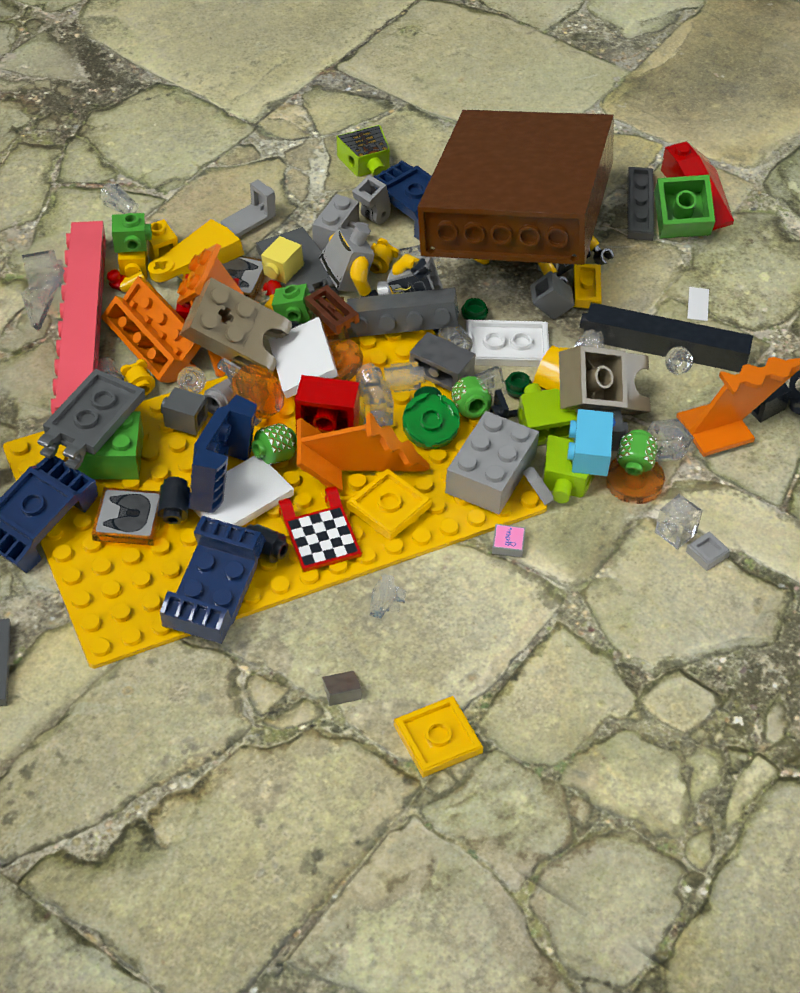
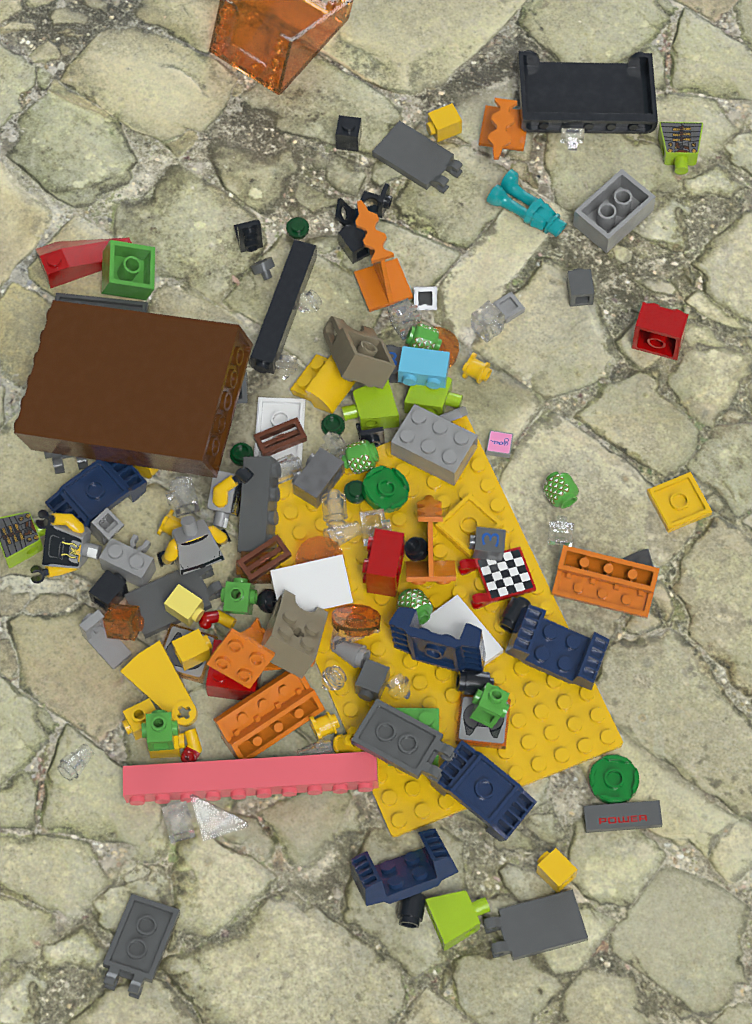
camera: 85 degrees left, 15 degrees up
(43, 655) = (613, 779): none -> green tile
(136, 503) = (489, 705): none -> bright green brick
(177, 437) = (399, 686): none -> clear plate
(234, 261) = (192, 649): none -> yellow brick
(264, 217) = (123, 622): none -> clear orange brick
(302, 212) = (108, 590): none -> black brick
(309, 642) = (605, 581): none -> orange brick
(352, 168) = (65, 545): none -> torso
(355, 508) = (488, 543): none -> dark grey brick
(442, 595) = (561, 490): none -> bright green head
(490, 338) = (282, 437): none -> copper tile
(609, 512) = (476, 369): none -> yellow brick
(693, 702) = (660, 330): none -> red brick
(698, 304) = (232, 280): white sticker -> none
(707, 468) = (425, 297): none -> slope
(715, 319) = (263, 267): none -> dark grey tile
(749, 621) = (580, 287): none -> dark grey brick
(752, 308) = (249, 235): none -> black bracket
(776, 348) = (297, 228): none -> dark green plate

